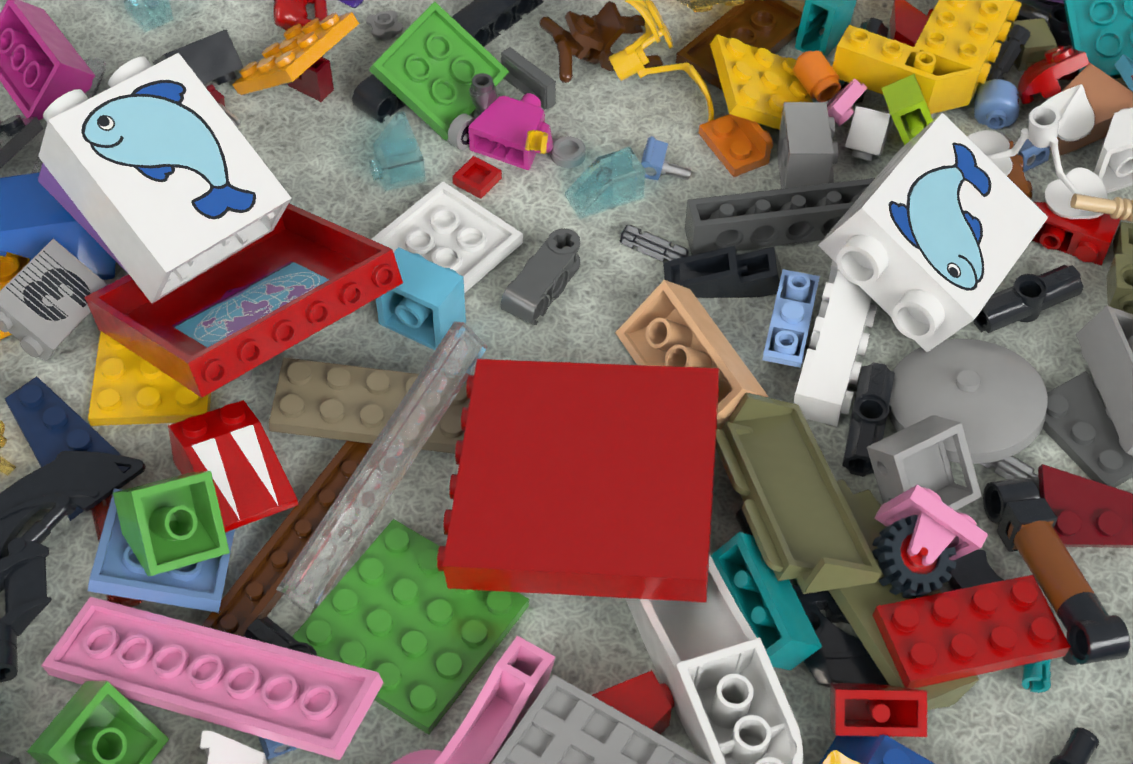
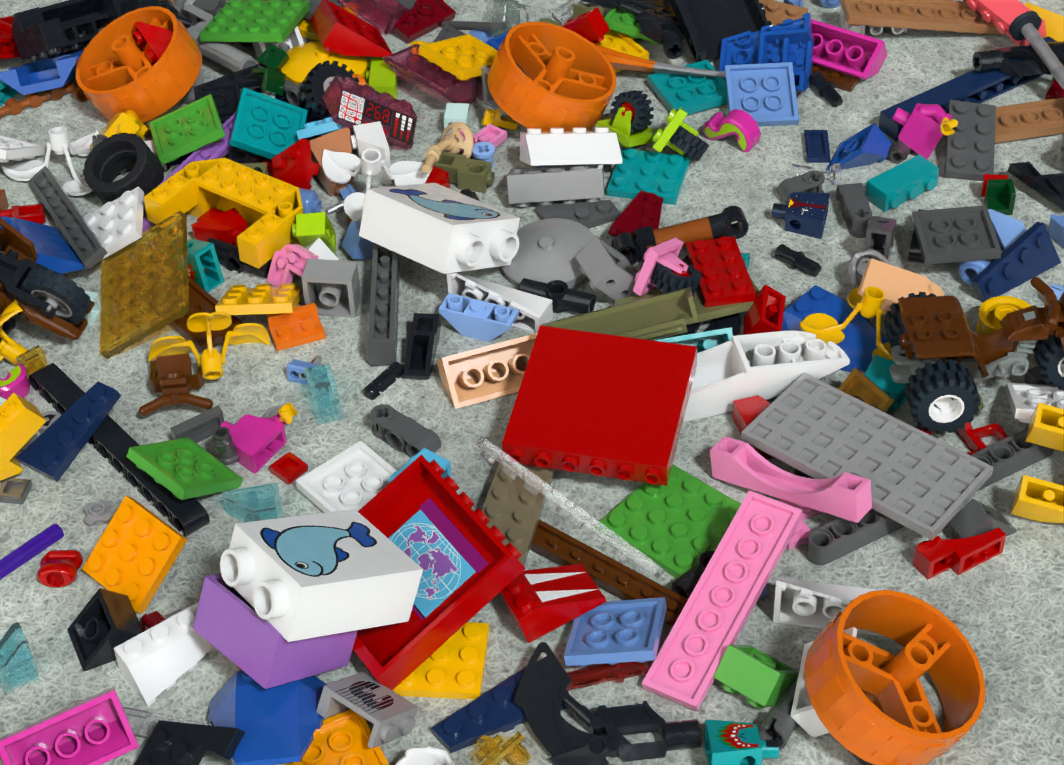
camera: 80 degrees left, 10 degrees down
(172, 522) = (601, 613): bright green slope -> none
(458, 131) = (243, 468): light grey tile -> none
(817, 75) = (261, 271): orange brick -> none

